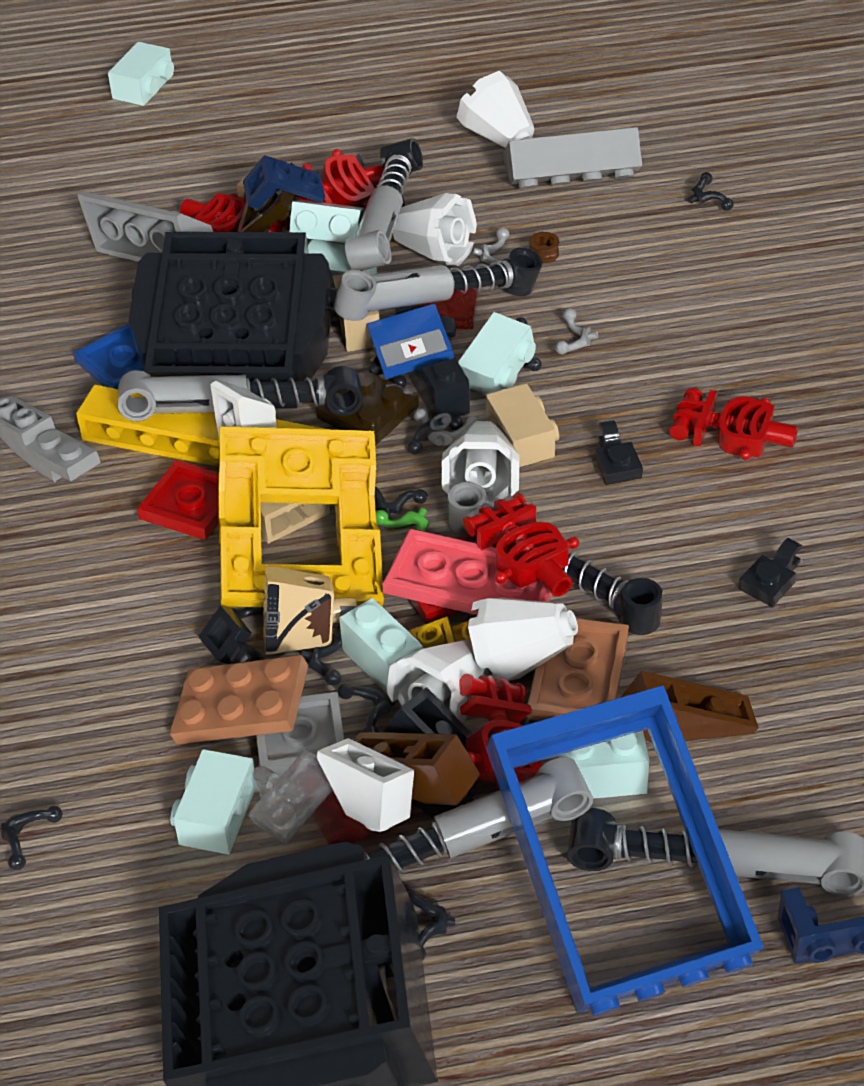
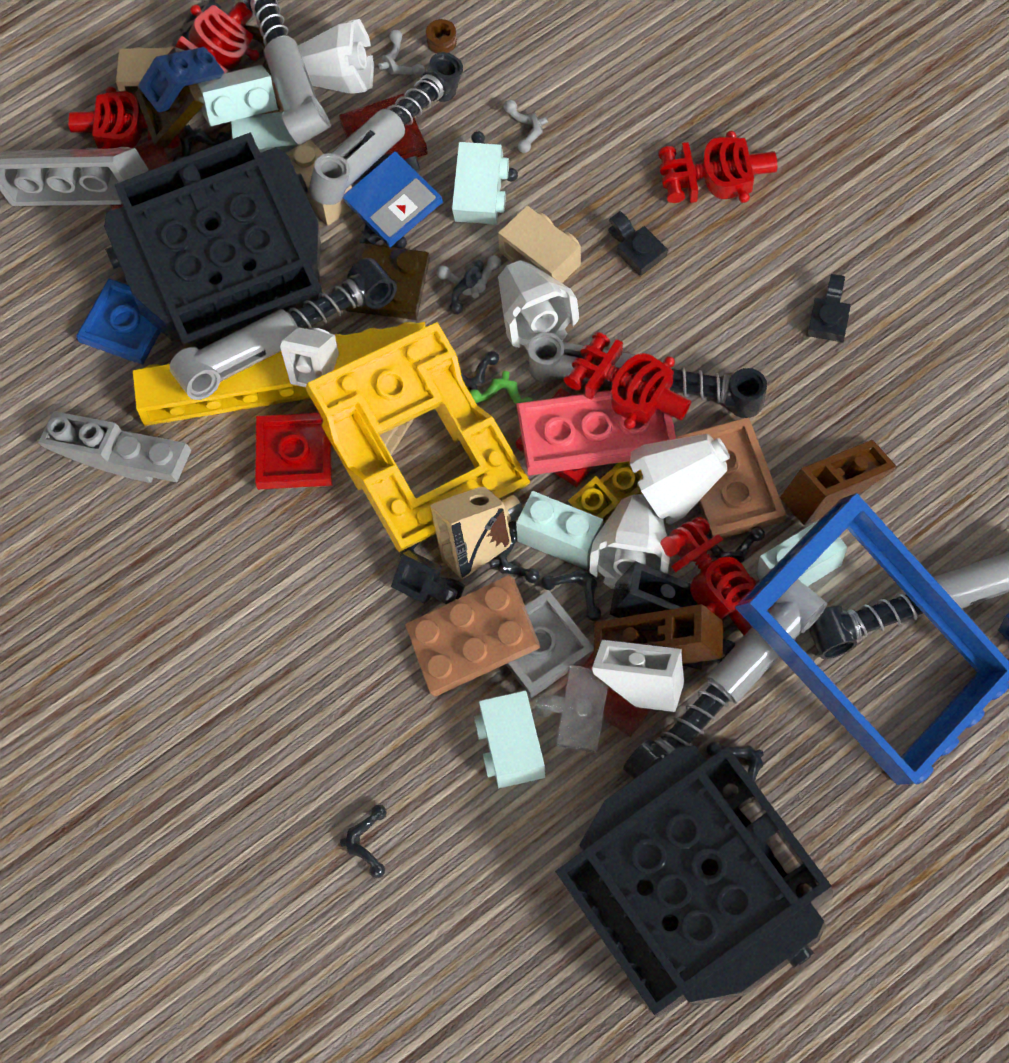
camera: 25 degrees left, 20 degrees up
(443, 388) = (447, 236): black slope -> none

